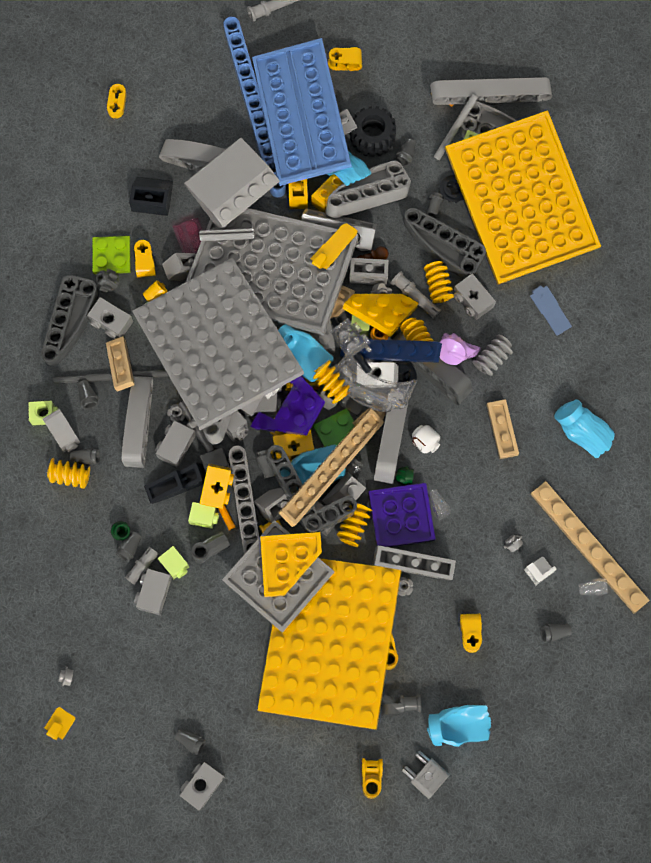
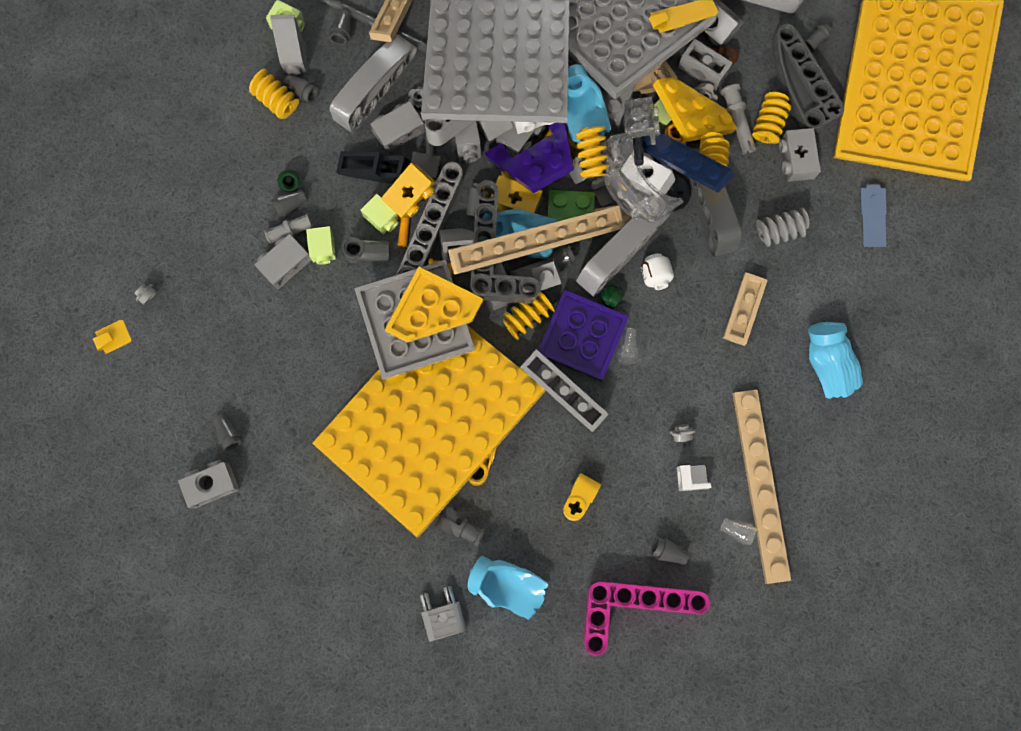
camera: 30 degrees right, 5 degrees up
(371, 775) = (385, 581): yellow piece -> none
(408, 583) = (543, 414): light grey plate -> none
(445, 185) = (843, 24): black gear -> none
(456, 350) = (744, 194): lavender hair -> none
(553, 680) = (635, 601): none -> dark pink beam

